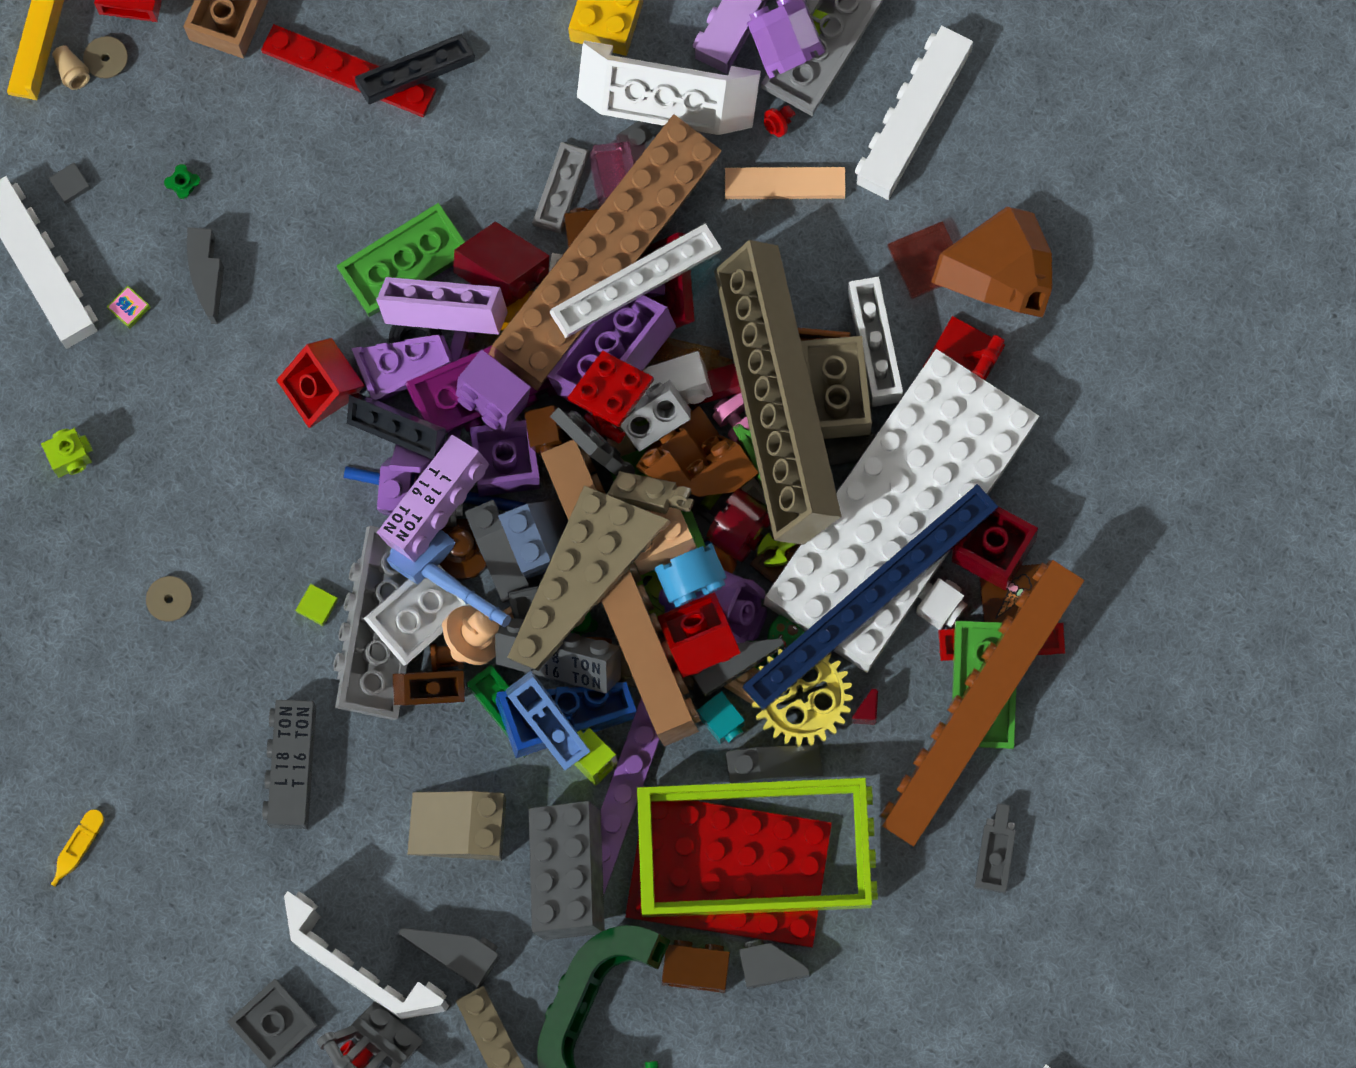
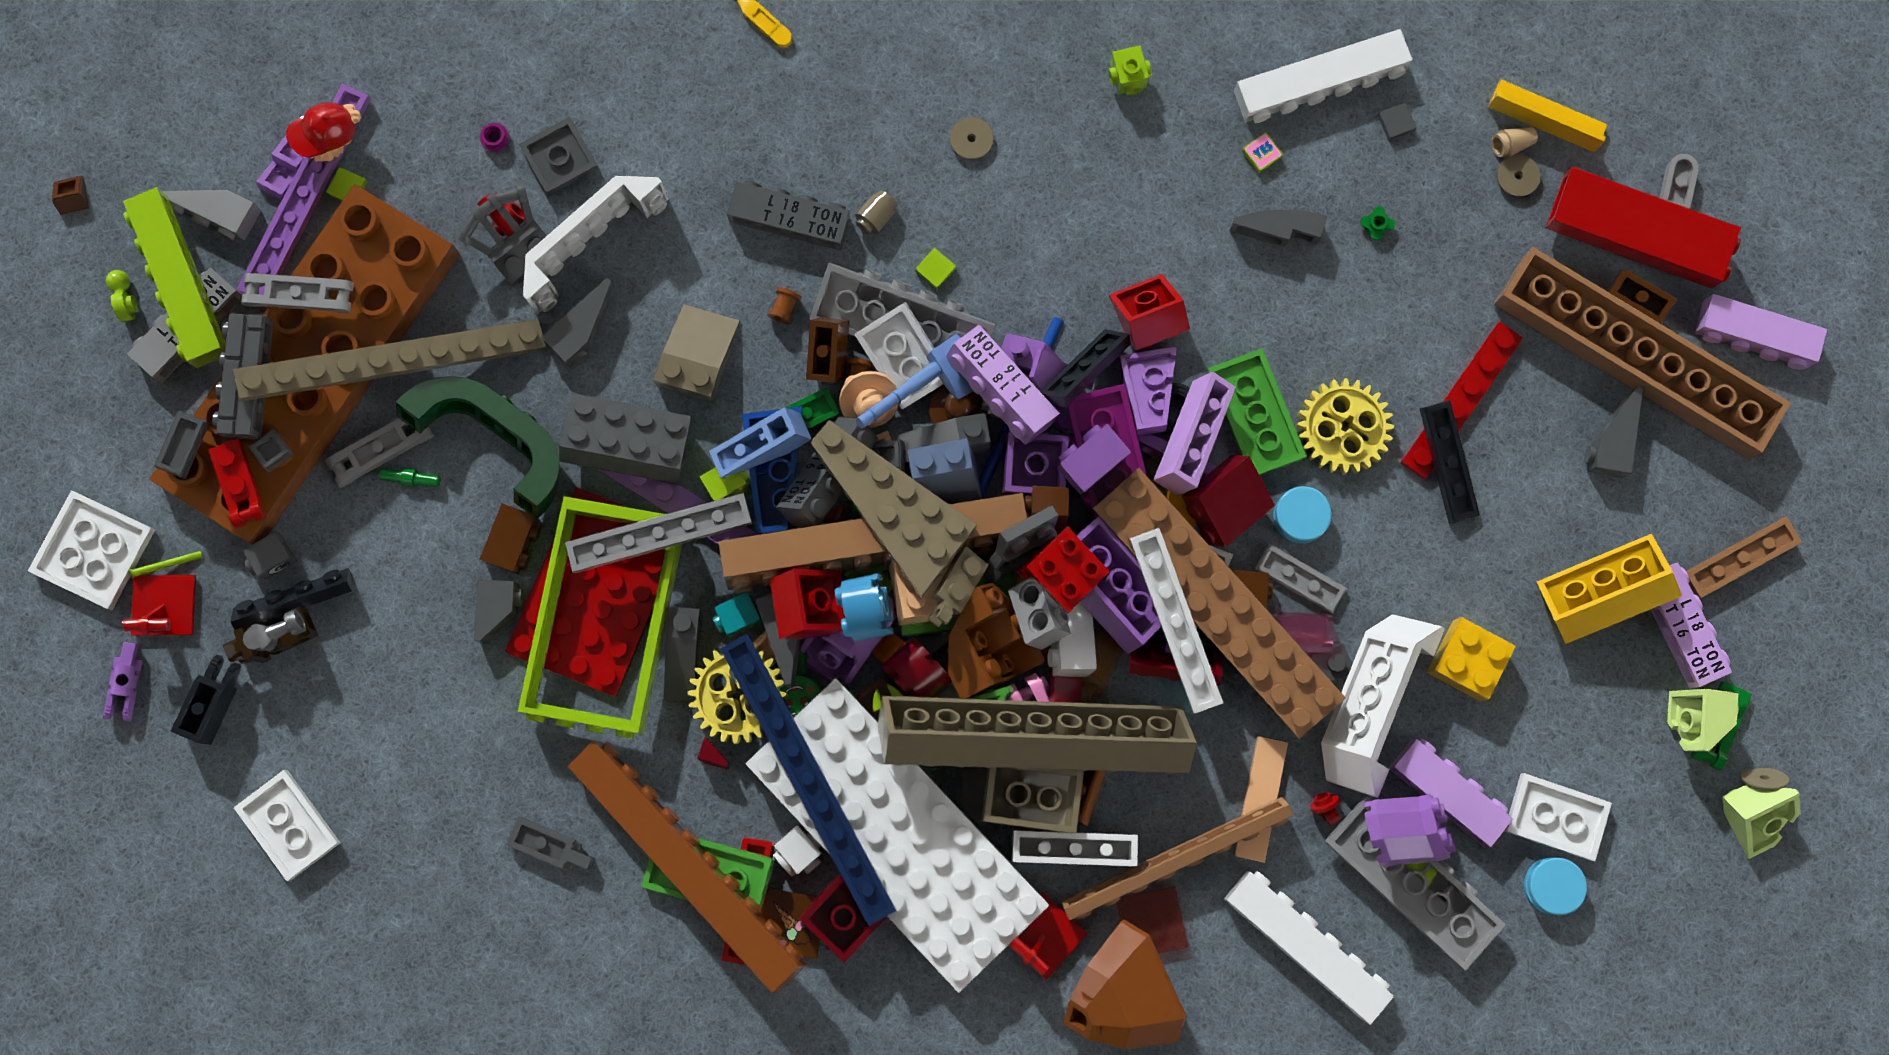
camera: 95 degrees right, 5 degrees up
(269, 677) = (876, 212): none -> dark tan brick
(374, 166) = (1332, 449): none -> light yellow gear
(388, 748) = (784, 305): none -> dark orange bush
(497, 196) = (1302, 515): none -> medium azure head
(660, 802) = (658, 533): none -> light grey plate
(861, 246) = (1186, 854): none -> medium nougat plate

